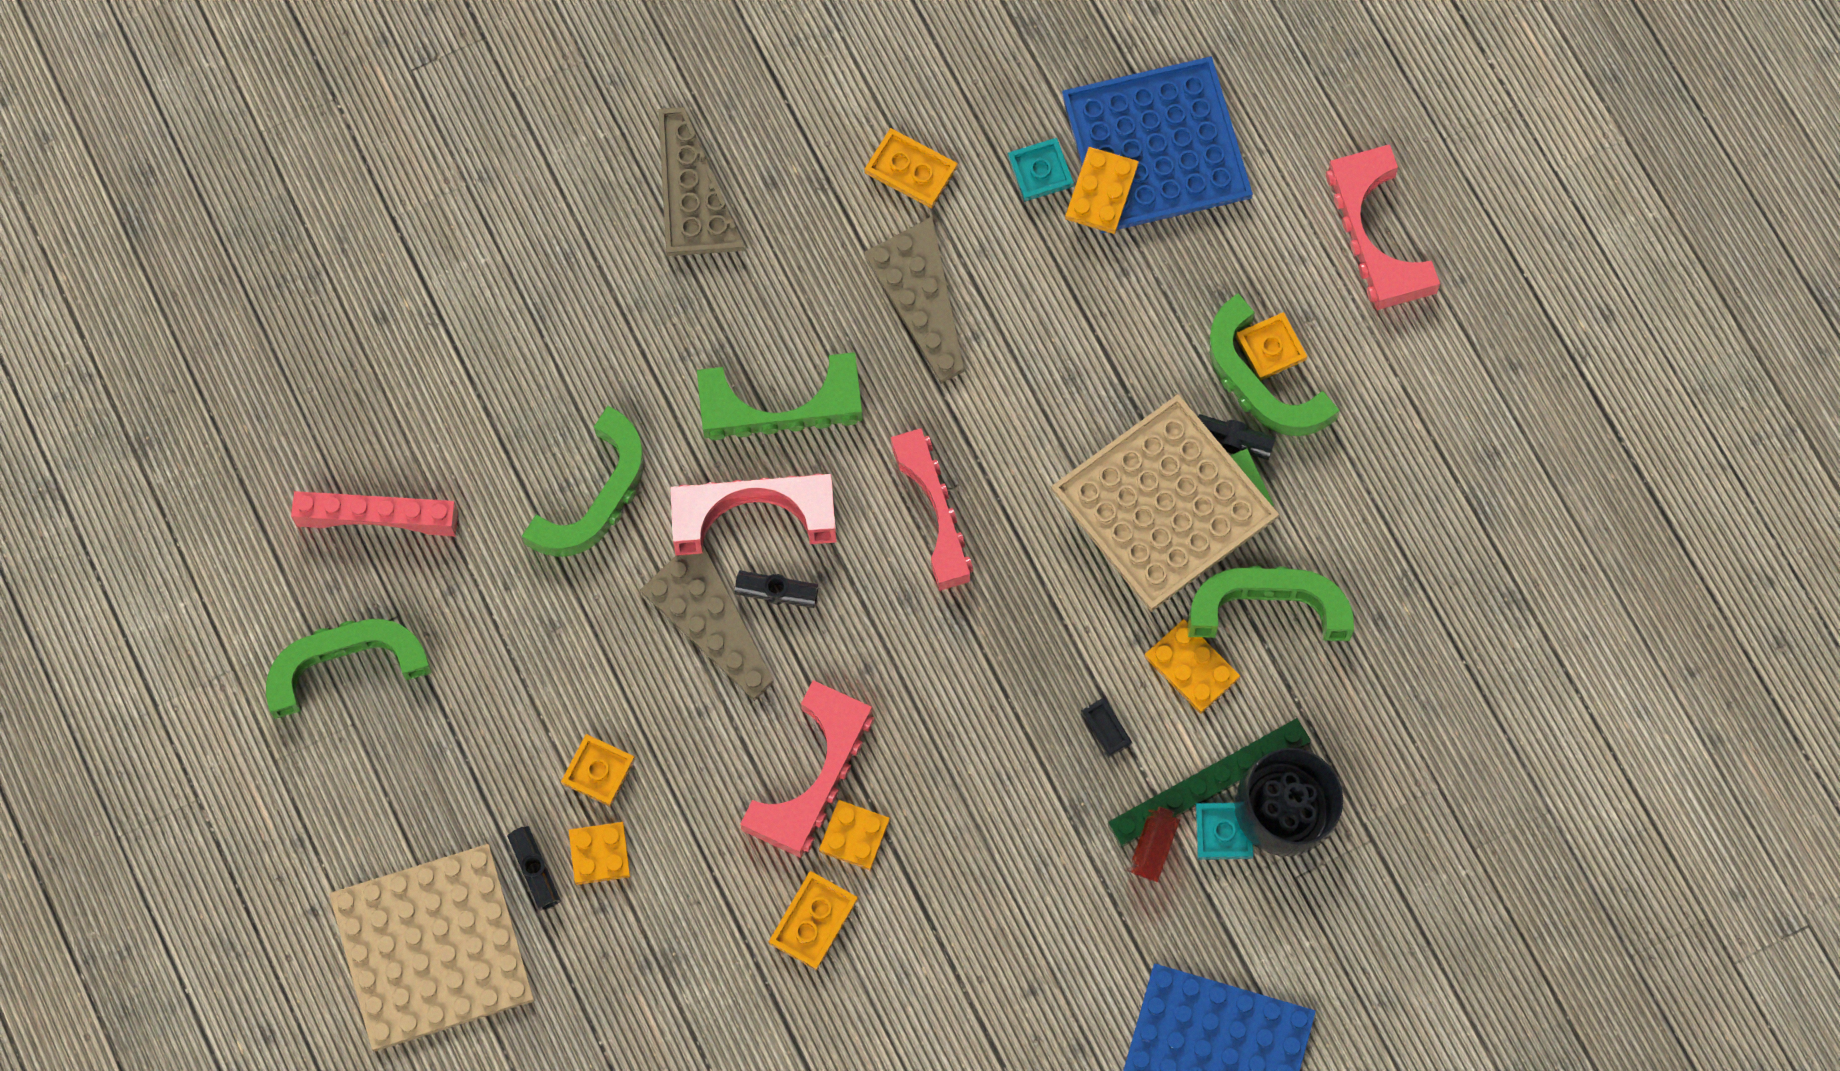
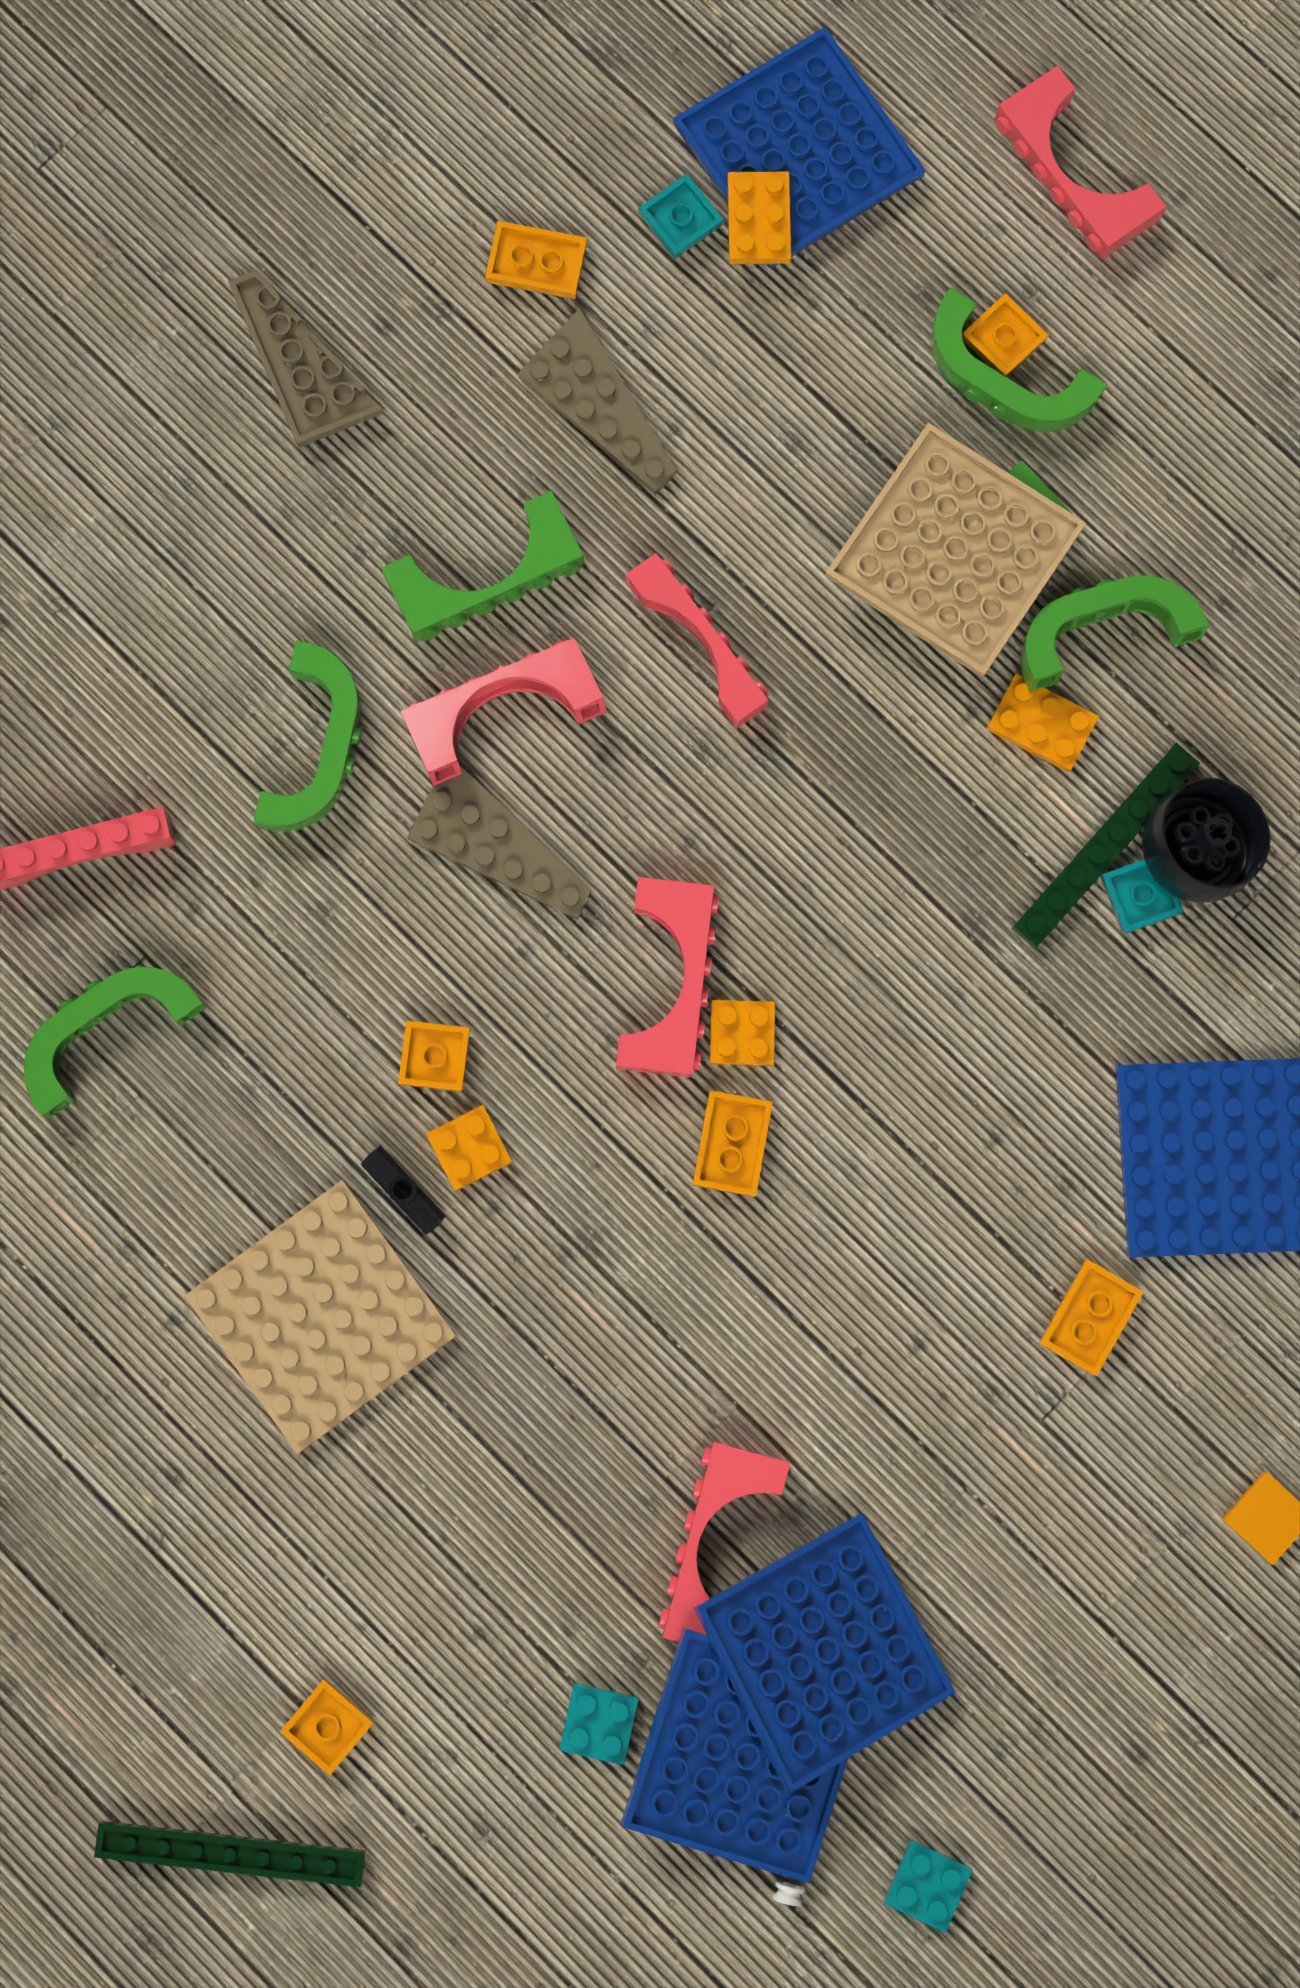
camera: 25 degrees left, 10 degrees up
(759, 586) = (580, 783): black piece -> none
(1106, 727) = (973, 821): black tile -> none
(1154, 844) = (1075, 935): clear red window -> none
(1237, 436) = (1007, 450): black piece -> none

